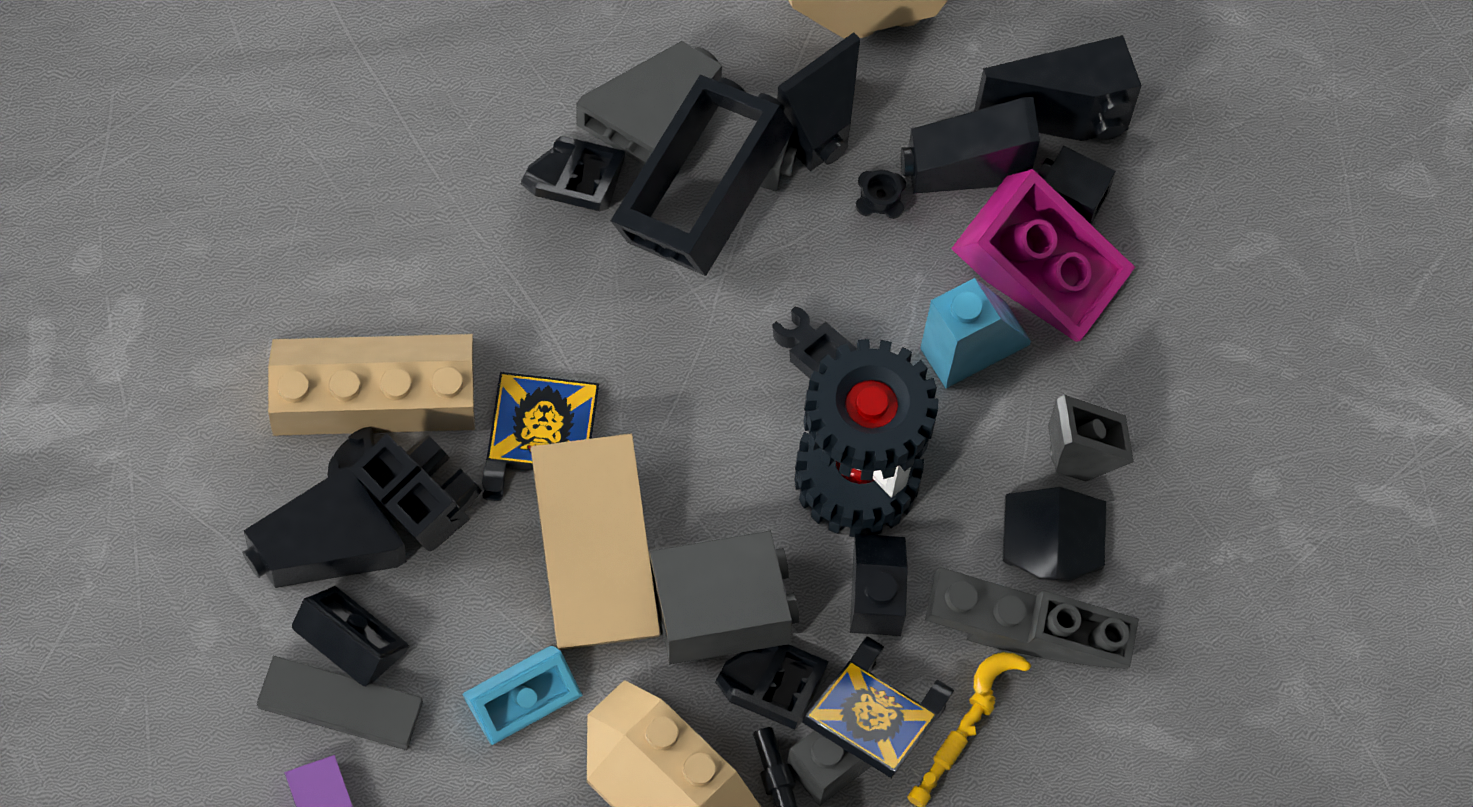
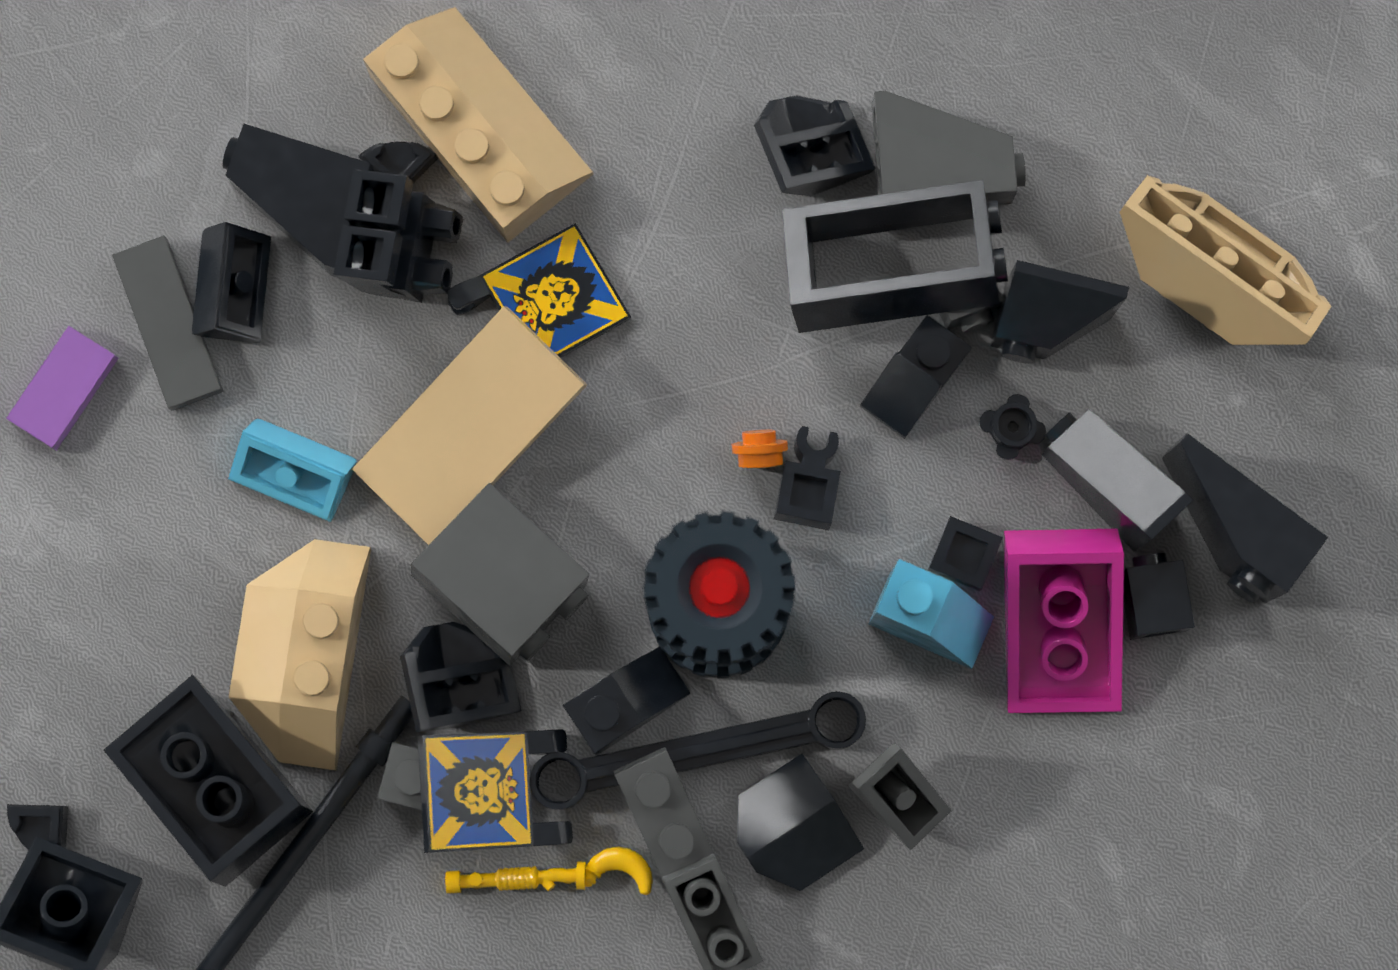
camera: 60 degrees right, 15 degrees up
(766, 363) = (759, 449): none -> orange plate
(795, 230) = (915, 376): none -> black slope
(942, 276) = (965, 553): none -> black plate
(955, 550) = (705, 748): none -> black piece

